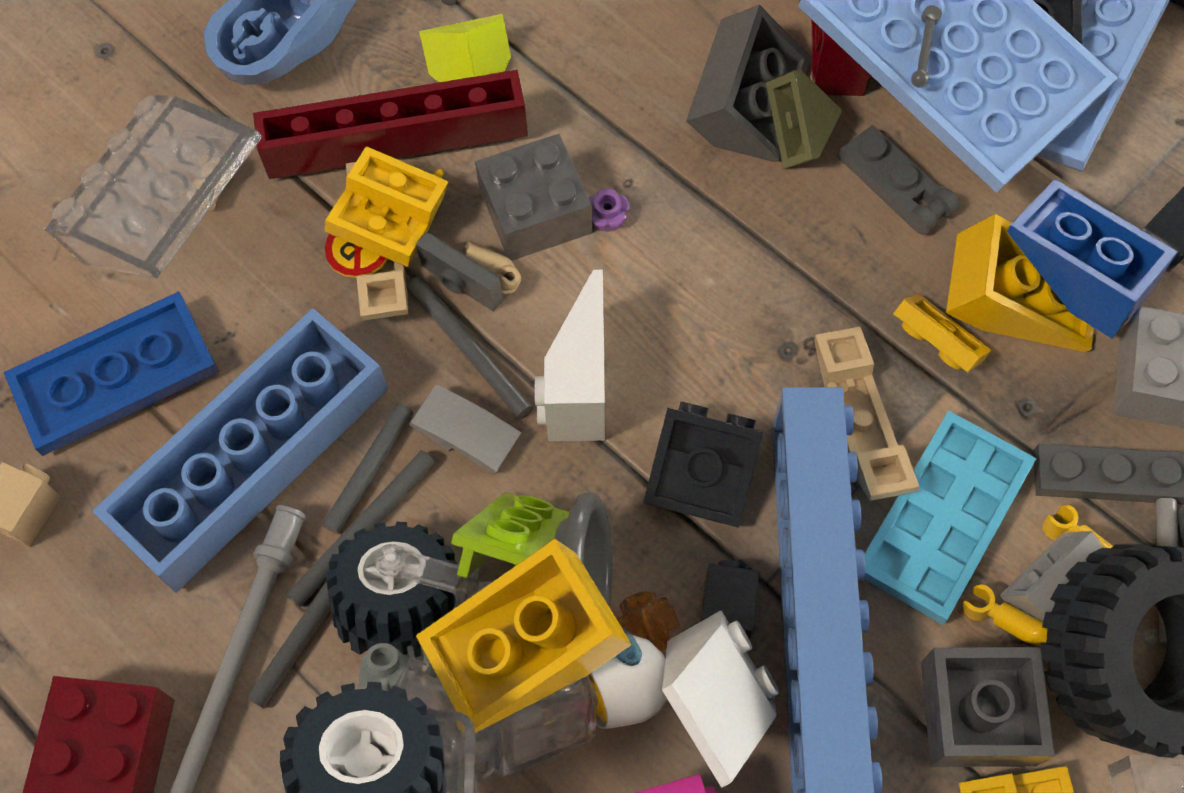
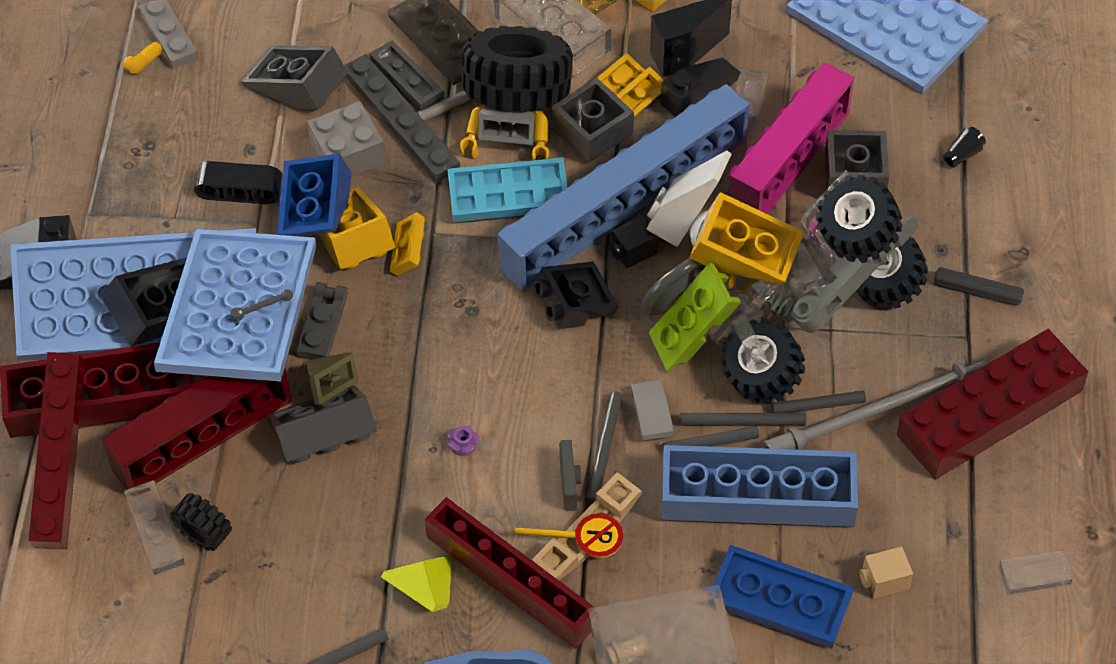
camera: 130 degrees left, 10 degrees down
(386, 206) = (566, 529): yellow slope -> none
(496, 263) = (548, 464): tan arm -> none
(534, 197) = (491, 471): flat silver brick -> none
(572, 388) = (576, 369): white slope -> none
(649, 618) = (676, 254): clear orange gear -> none
(881, 463) = (483, 255): tan slope -> none

